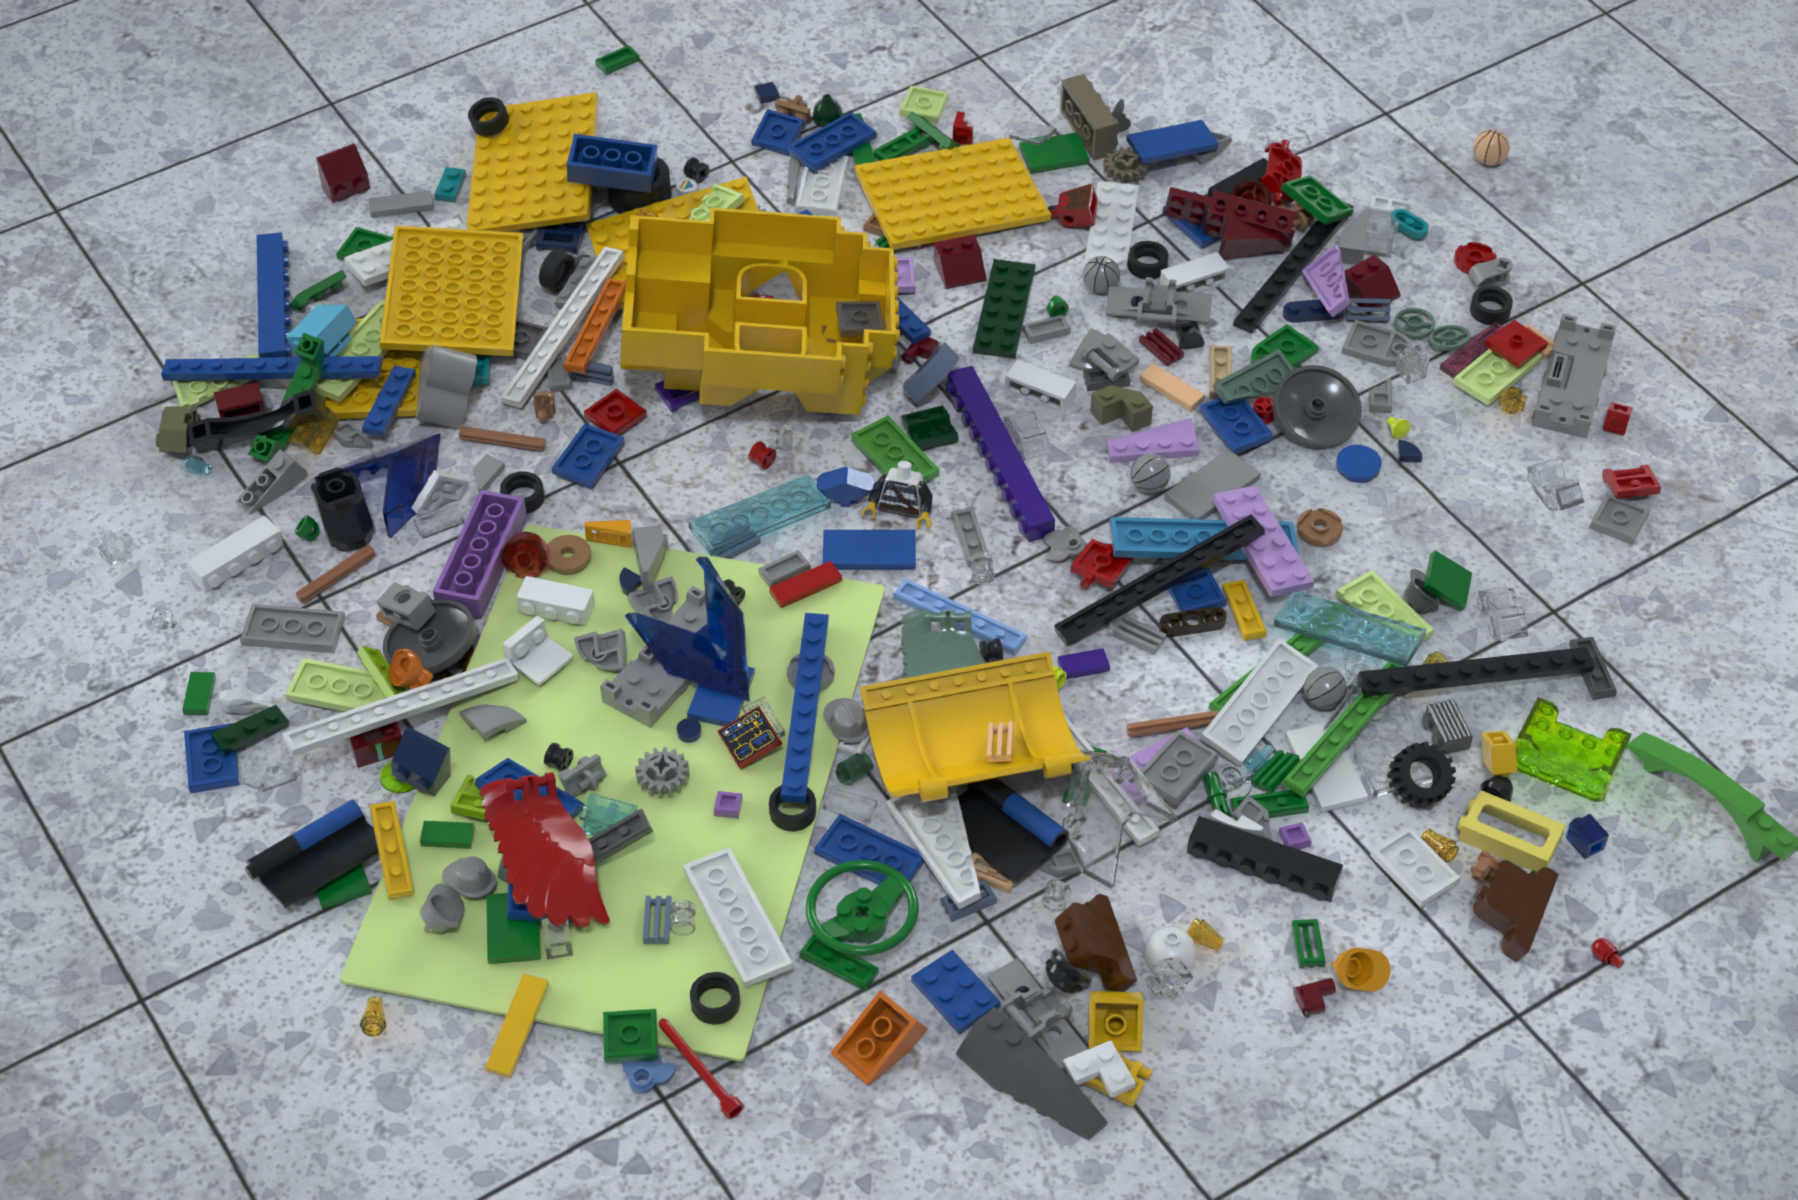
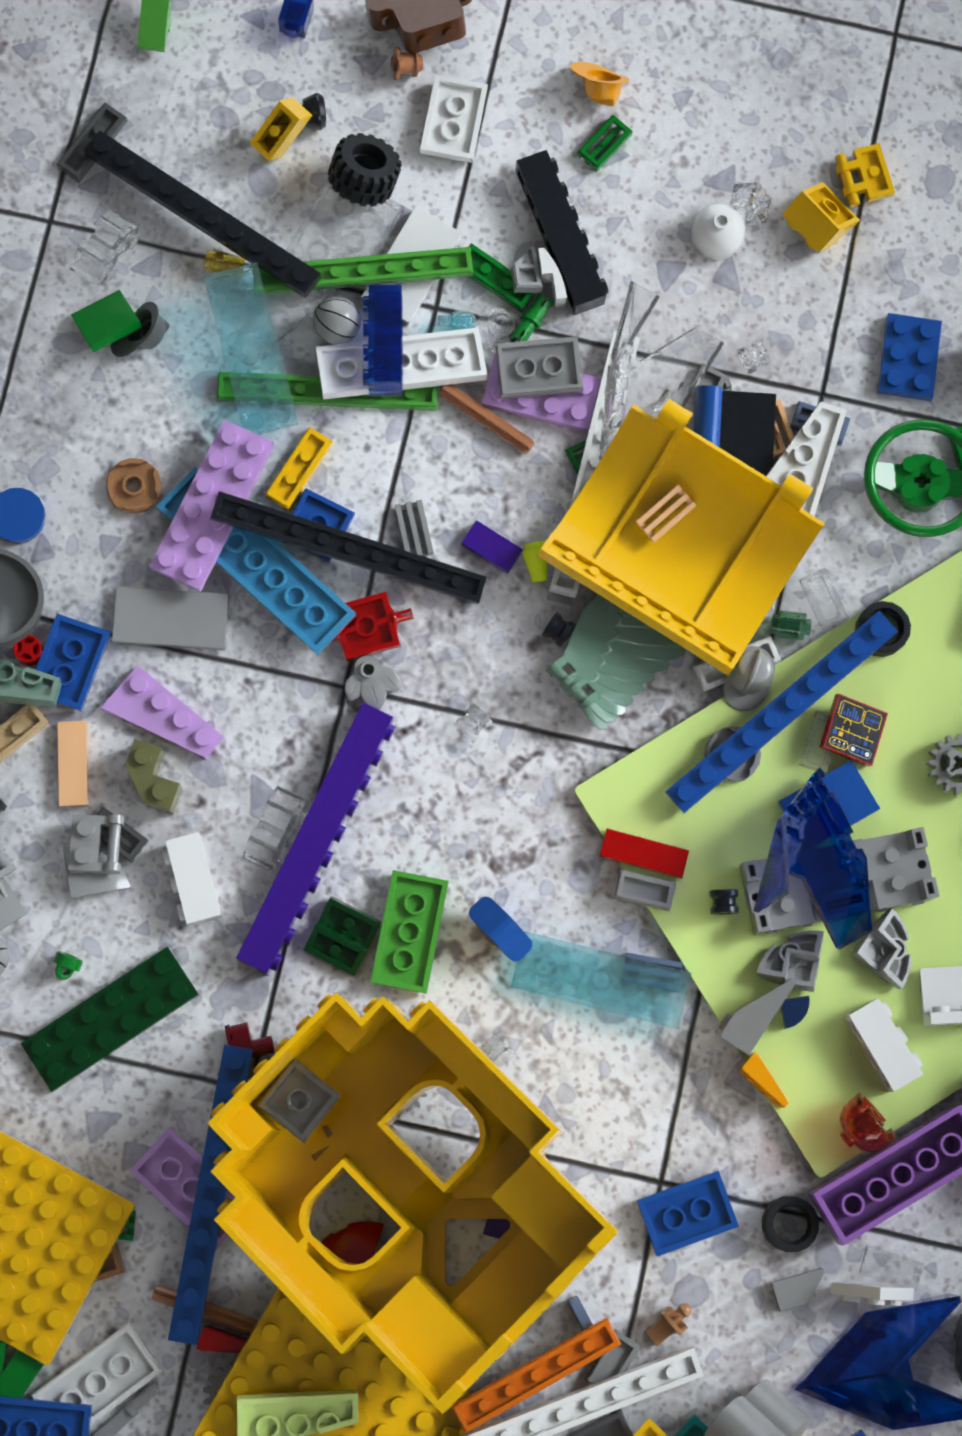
camera: 145 degrees left, 30 degrees up
(502, 438) = (745, 1320): nougat axle -> none
(568, 544) = (802, 1100): medium nougat tile -> none
(615, 413) = (623, 1253): red plate -> none
(689, 730) = (891, 792): clear blue tile -> none
(728, 804) = (928, 686): medium lavender tile -> none
(762, 455) = (531, 1050): red wheel -> none
(853, 841) = (854, 539): blue tile -> none
(870, 549) = (542, 846): blue tile -> none
(902, 493) = (460, 870): torso -> none
(931, 372) = (277, 983): sand blue arch -> none
(959, 261) = (91, 1117): dark red slope -> none
(968, 533) = (440, 773): light grey tile -> none
(981, 627) = (541, 697): light blue tile -> none
(1022, 1069) = (930, 244): dark grey wedge -> none
(1043, 1008) = (863, 273): light grey piece -> none
(1046, 329) = (102, 951): light grey tile -> none
(1064, 975) = (821, 279): black hat -> none
(1095, 942) = (774, 283): reddish brown brick -> none
(1101, 1062) = (873, 188): white plate -> none
(1150, 473) = (219, 673): light grey piece -> none
(1164, 345) = (23, 825): dark red tile -> none
(1176, 618) = (376, 503): dark brown beam -> none
(1205, 935) = (677, 221): clear yellow cone -> none
(1277, 767) = (482, 296): green tile -> none
(1282, 693) = (385, 340): none -> clear blue brick
(1295, 836) = (509, 233): medium lavender tile -> none
(1310, 996) = (655, 102): dark red piece -> none
(1353, 687) = (310, 302): light grey piece -> none
(1375, 596) = (184, 357): yellowish green wing -> none
(1441, 845) = (413, 115): clear yellow cone -> none
(1447, 726) = (279, 200): dark grey brick -> none
(1504, 844) = (348, 113): light yellow piece -> none
(1568, 755) = (220, 77): clear neon green windscreen -> none

